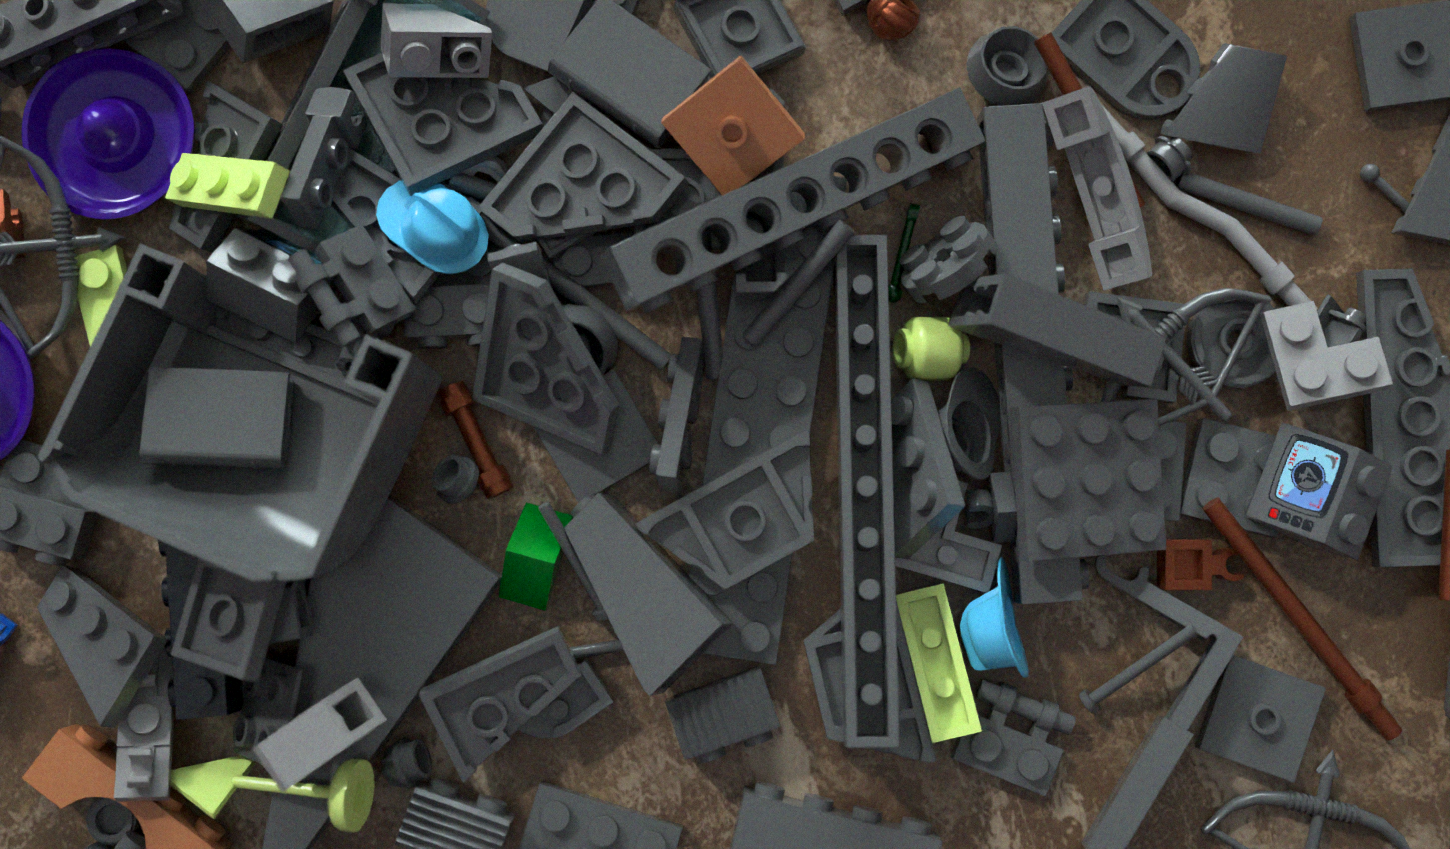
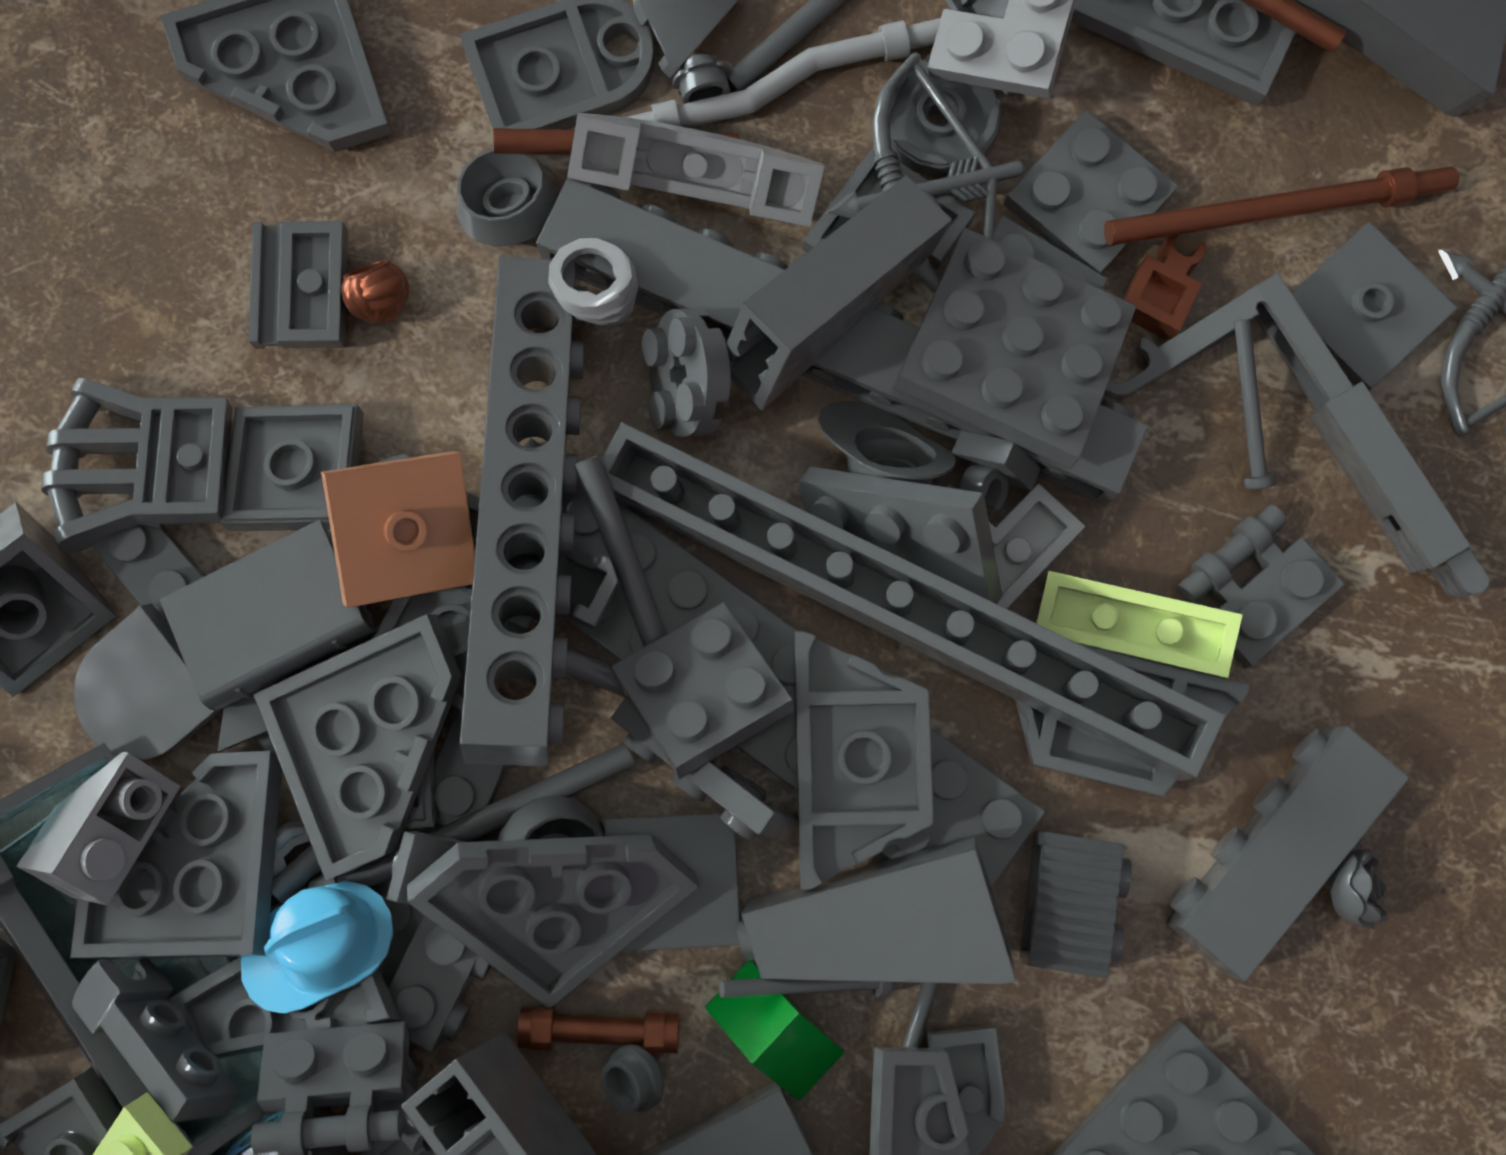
camera: 65 degrees left, 5 degrees down
(733, 387) = (702, 689): none -> dark grey plate
(894, 289) = (616, 392): dark green hinge -> none
(930, 349) = (774, 445): yellowish green head -> none
(963, 182) = (607, 307): none -> light grey piece
(991, 629) = (1130, 547): medium azure piece -> none
(1319, 491) = (1155, 111): dark grey slope -> none

